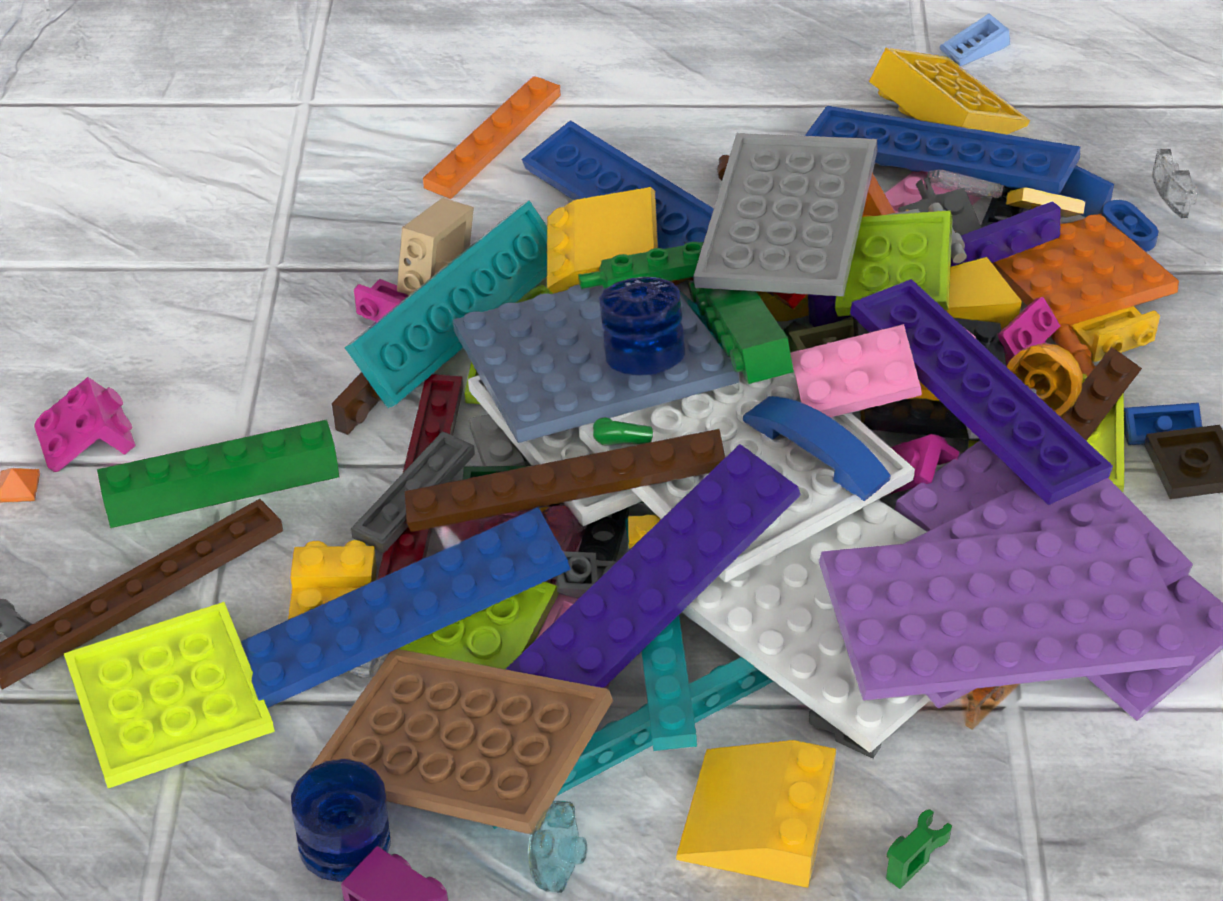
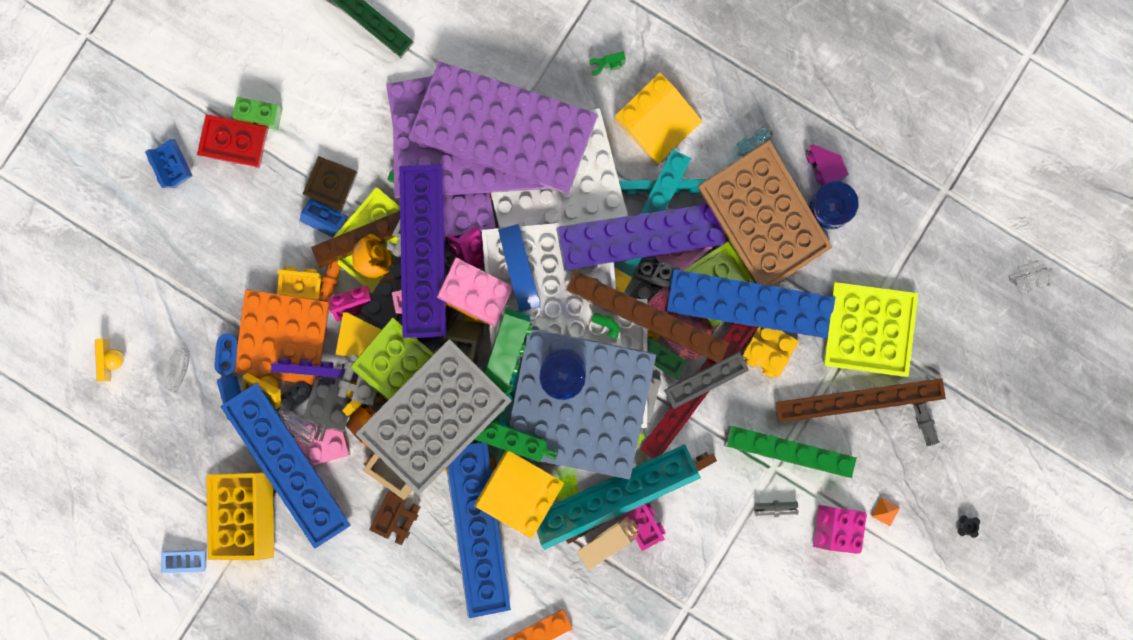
camera: 150 degrees left, 40 degrees up
(202, 410) = (776, 508): none -> dark grey pin

